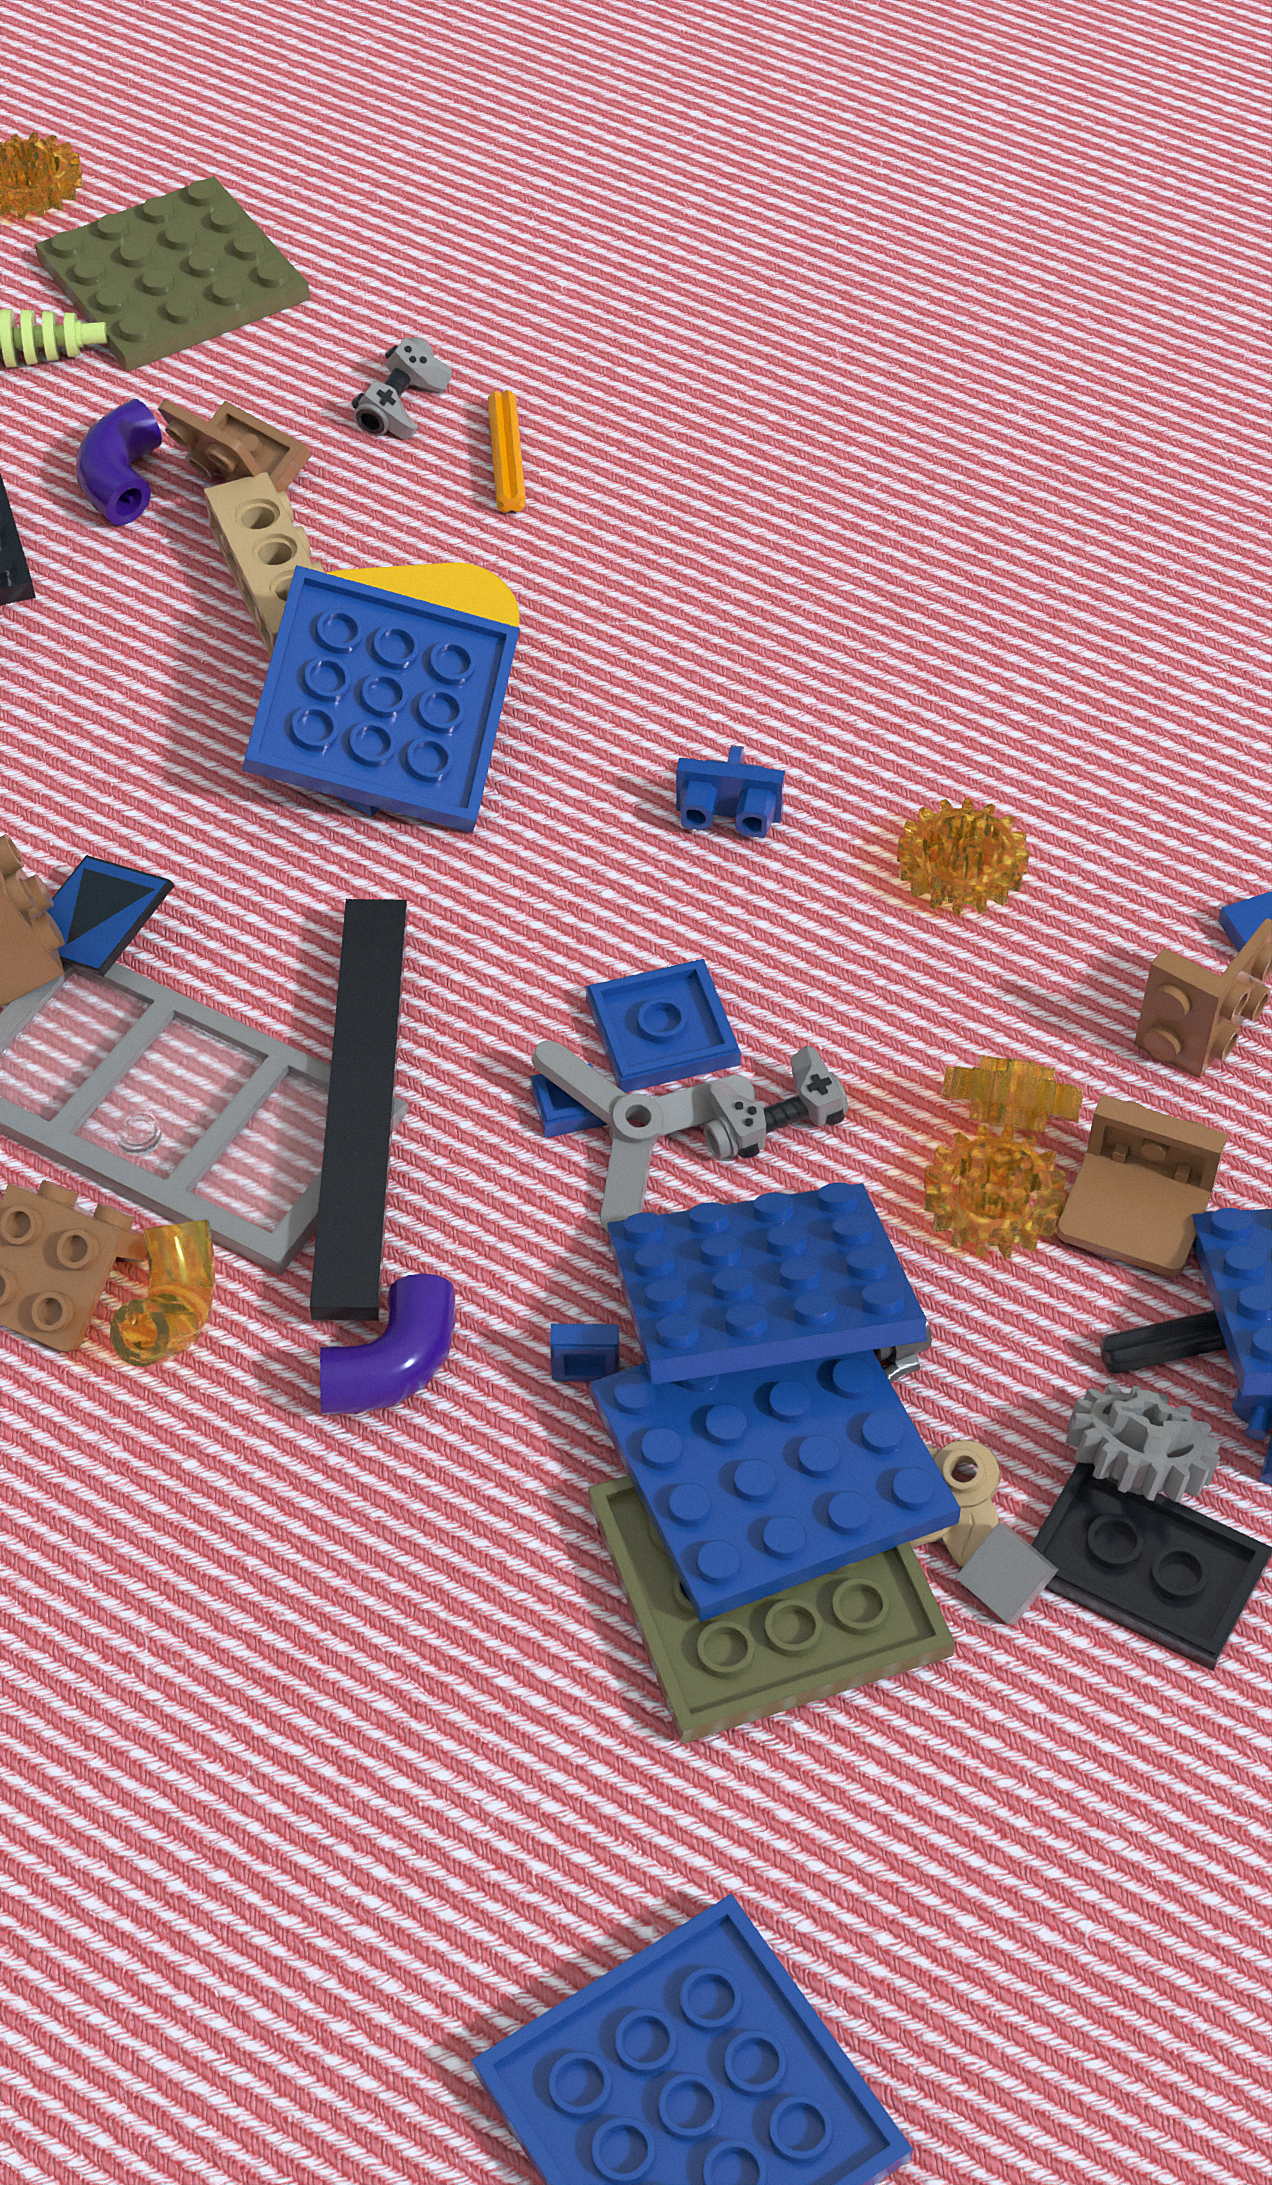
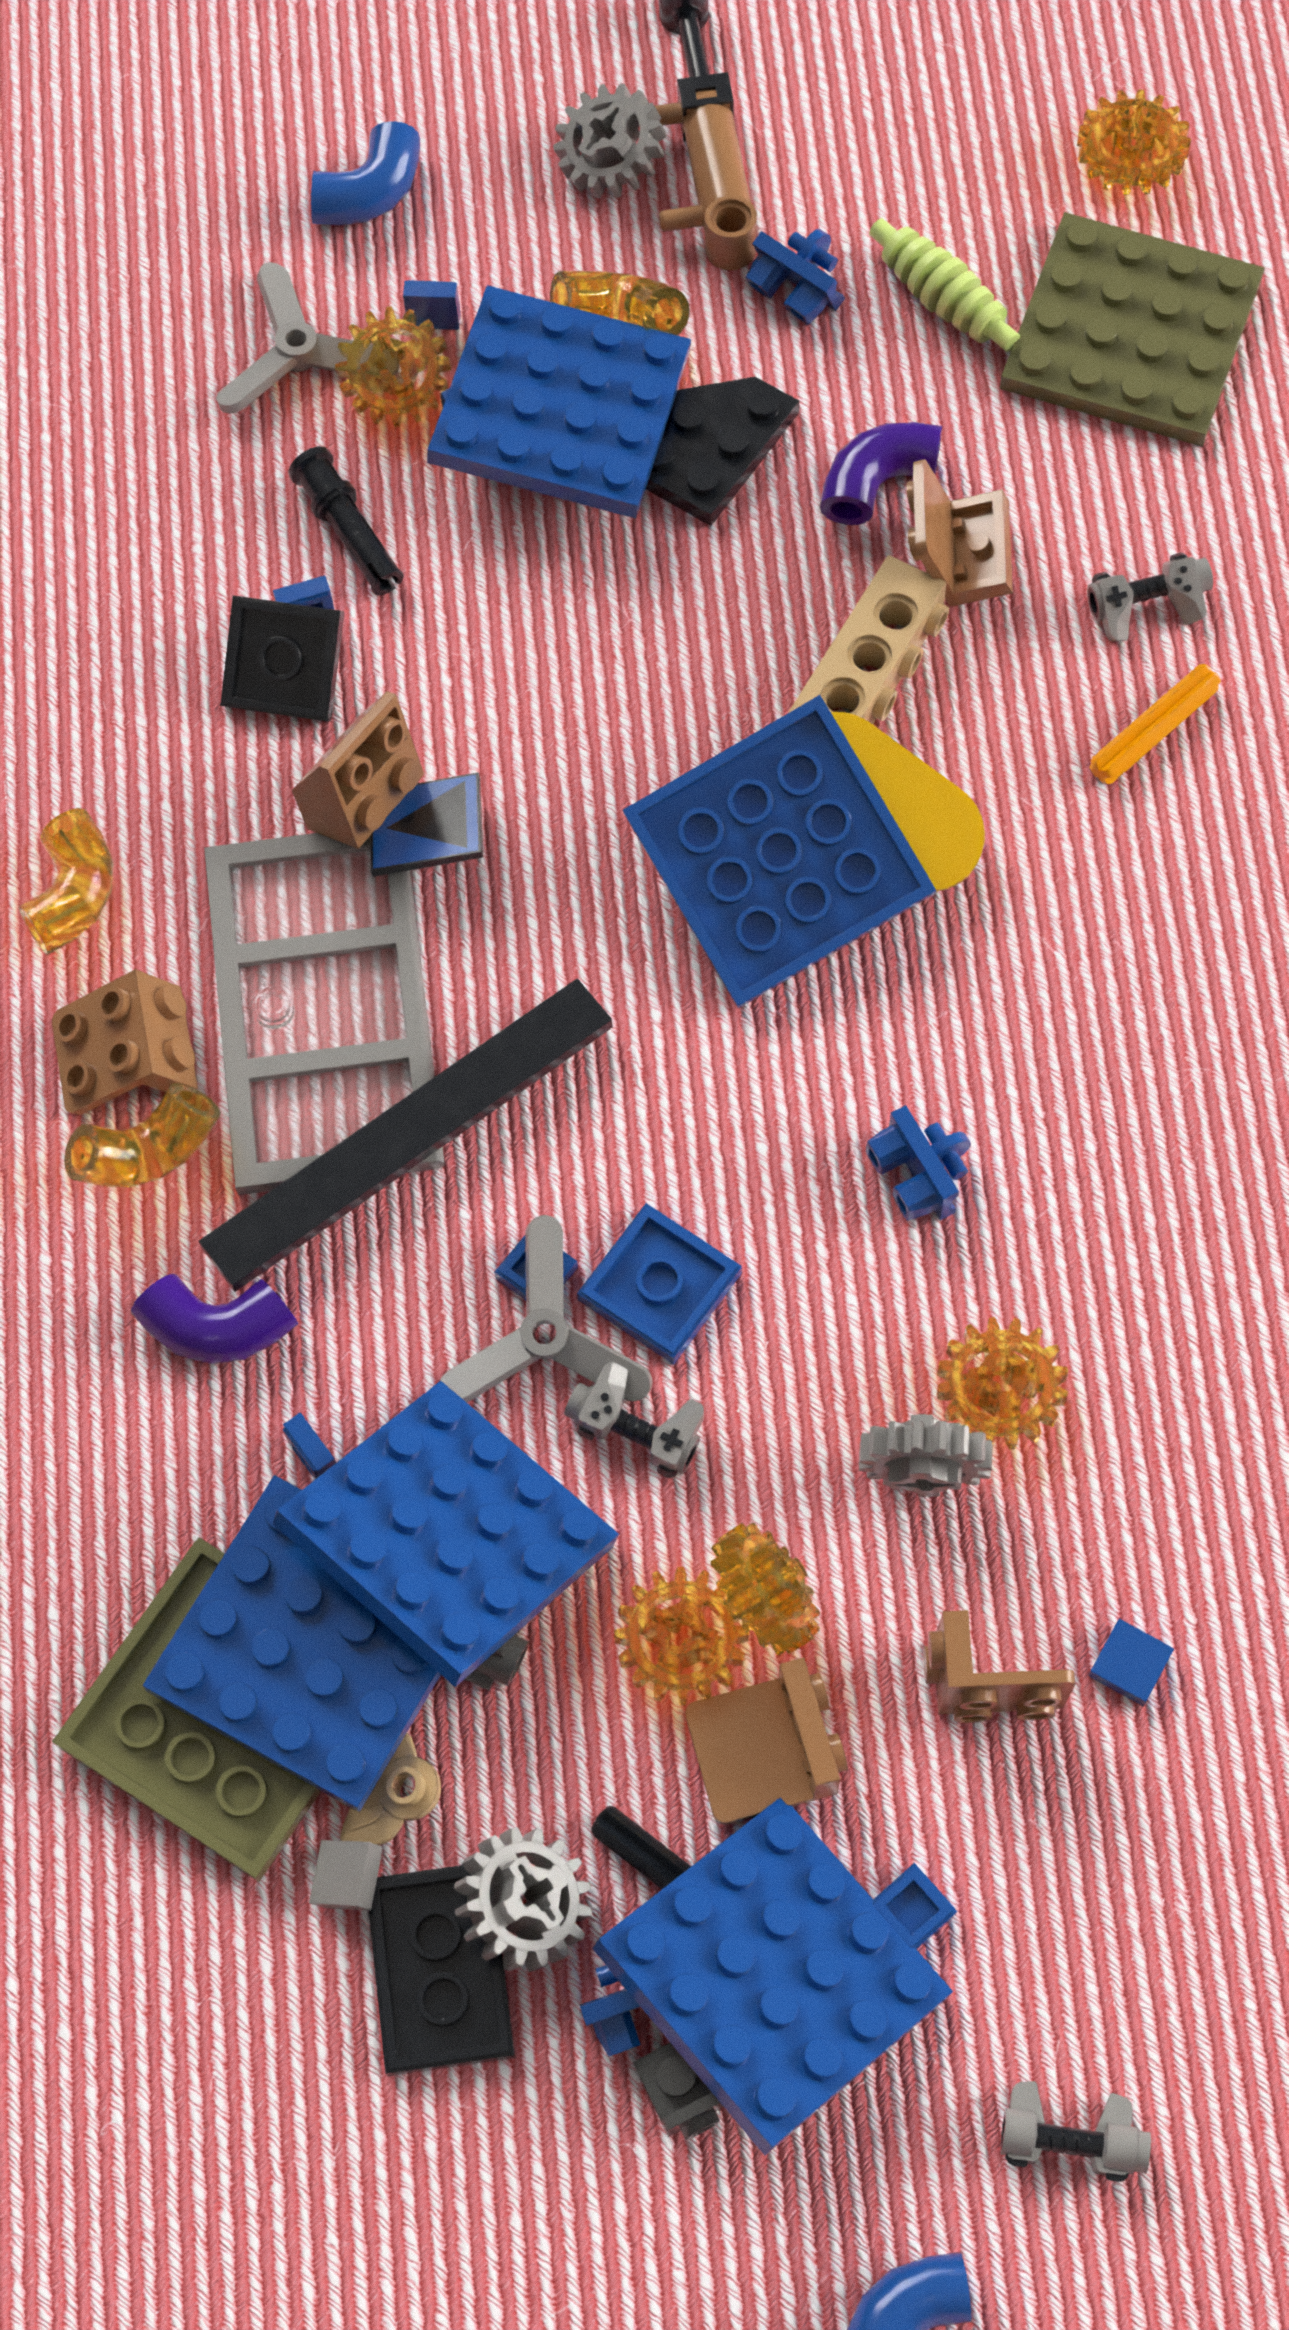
camera: 55 degrees right, 15 degrees up
(990, 922) = (925, 1455): none -> light grey gear

